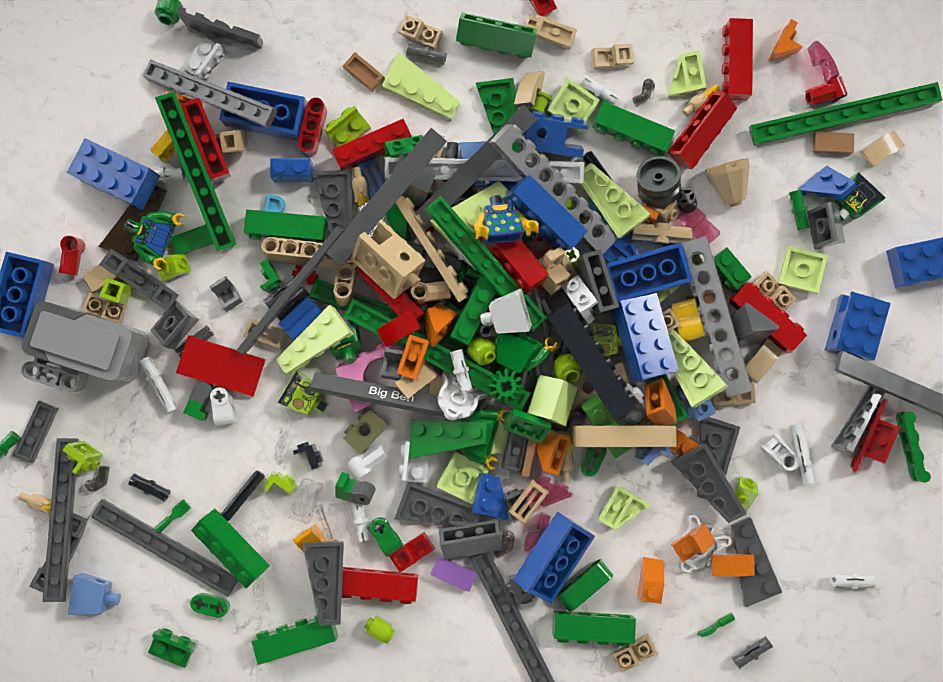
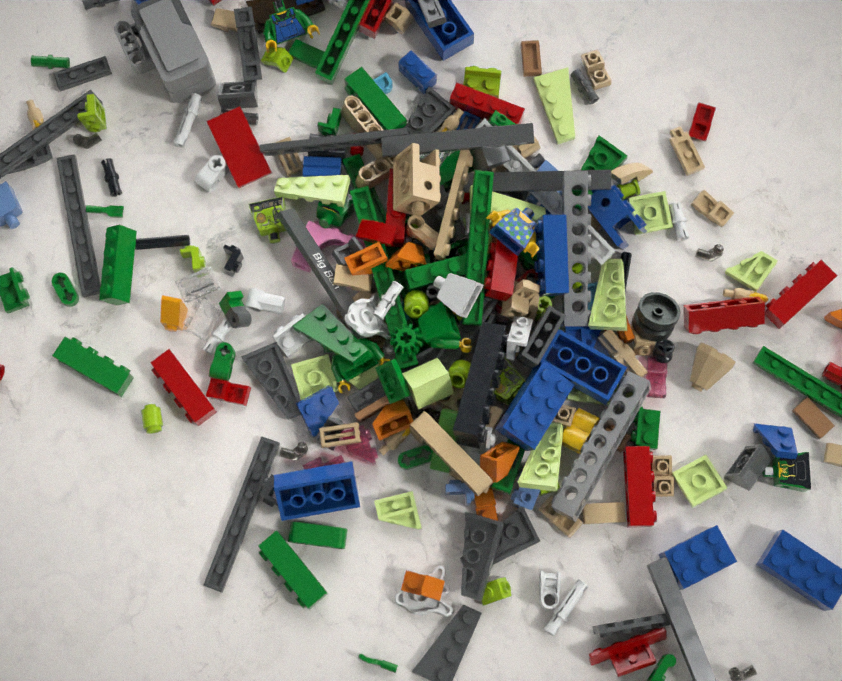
camera: 50 degrees right, 10 degrees down
(104, 308) = (208, 41): tan slope -> none
(116, 291) = (226, 37): lime brick -> none
(198, 401) = (201, 154): leg -> none
(226, 293) = (292, 106): dark grey bracket -> none
(312, 118) = (465, 52): red beam -> none
(325, 574) = (159, 340): dark grey wing -> none
(359, 441) = (294, 287): olive brick -> none
(453, 573) = (240, 434): medium lavender slope -> none
(470, 539) = (275, 421): dark grey brick -> none
(496, 35) = (644, 117): green brick -> none
(632, 655) = (301, 619): tan slope -> none
(633, 129) = (676, 267): green brick -> none
(651, 580) = (366, 580): orange slope -> none
(733, 565) = (434, 630): orange slope -> none
(751, 325) = (619, 478): dark grey slope -> none
(799, 209) = (739, 437): green pin -> none

